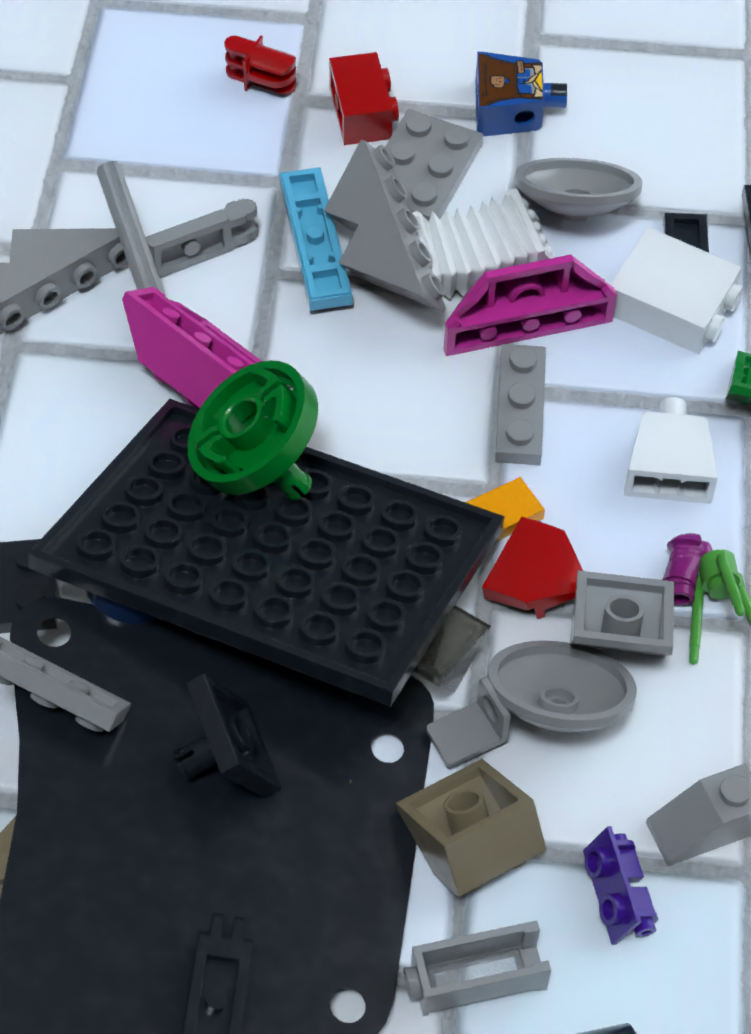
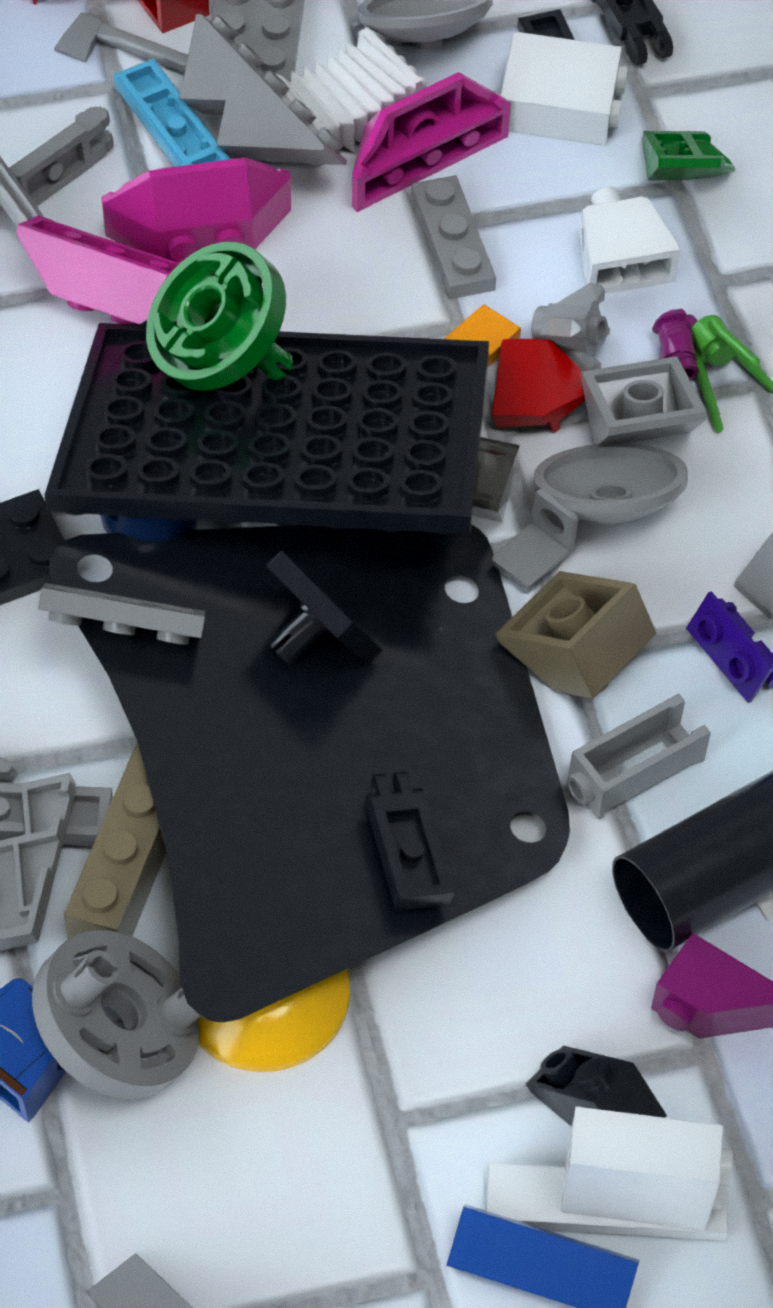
camera: 20 degrees left, 0 degrees up
(281, 125) = (88, 28): none -> light grey piece
(300, 319) = (197, 206): none -> dark pink wedge
(591, 525) = (574, 325): none -> light grey rock

